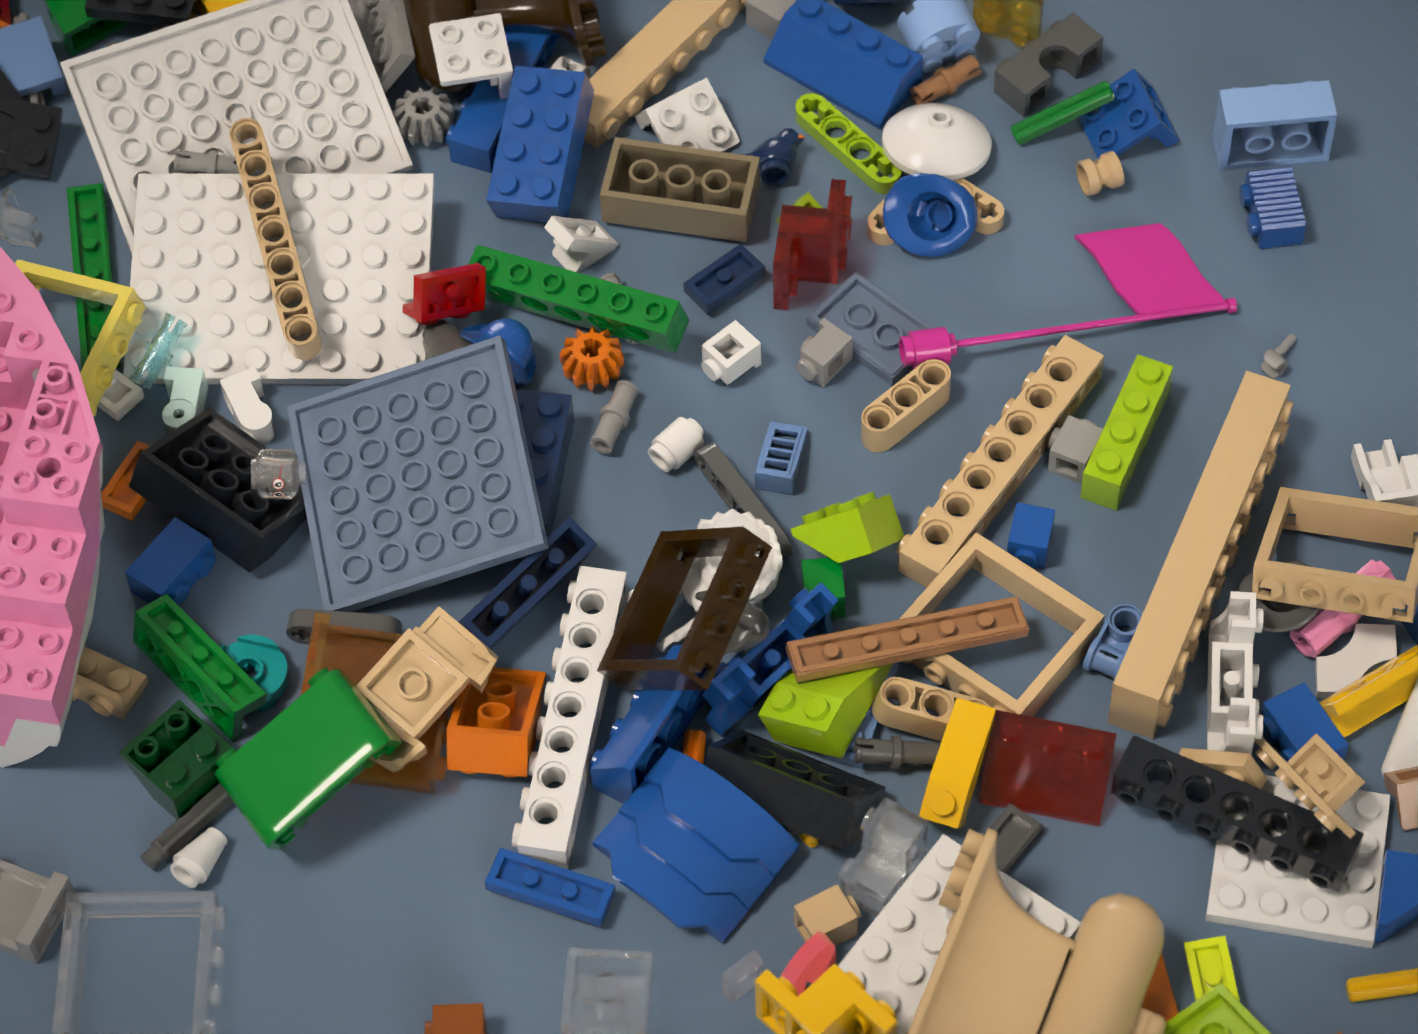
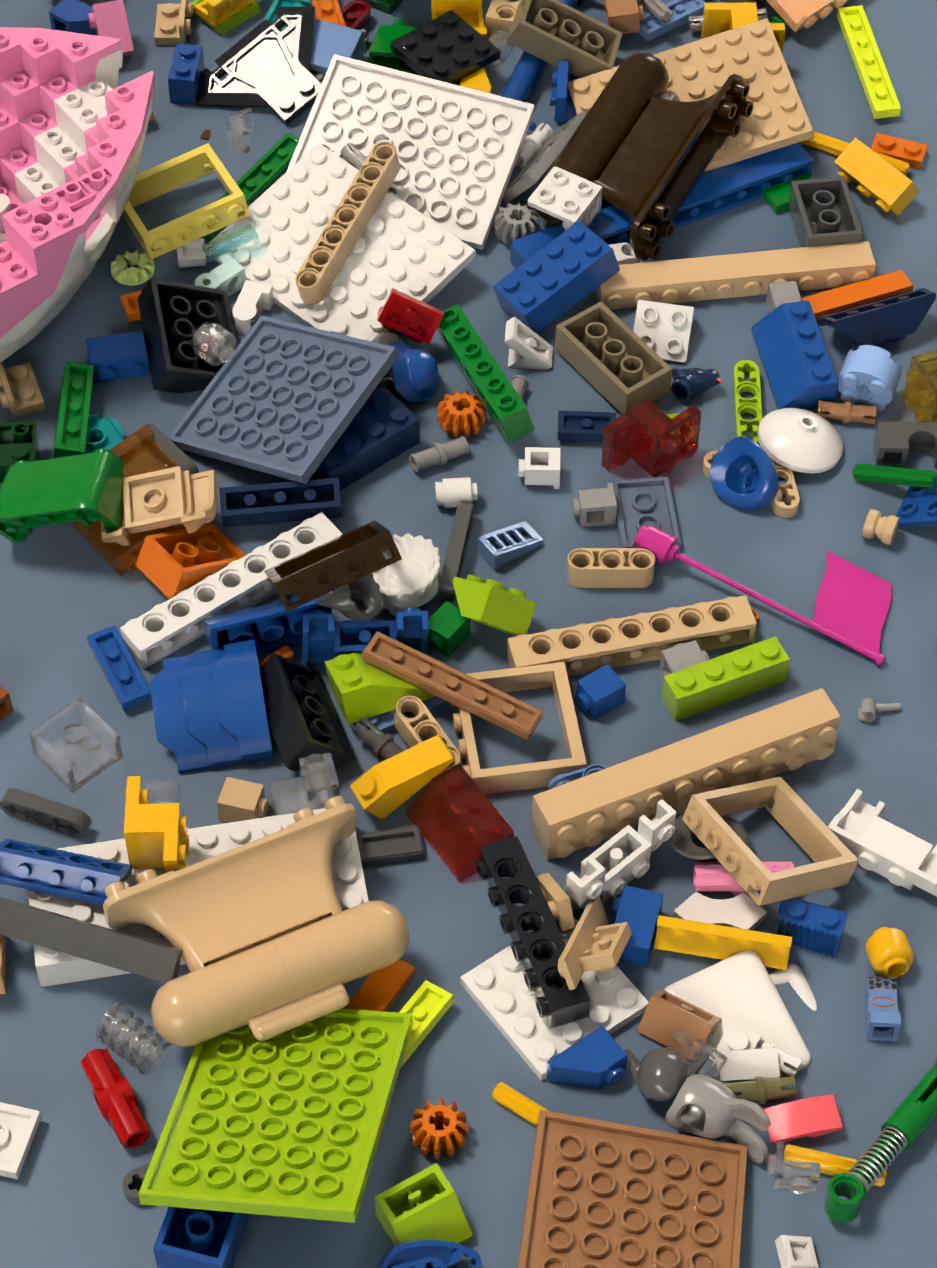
camera: 40 degrees right, 5 degrees down
(810, 962) = (203, 813): coral slope -> none

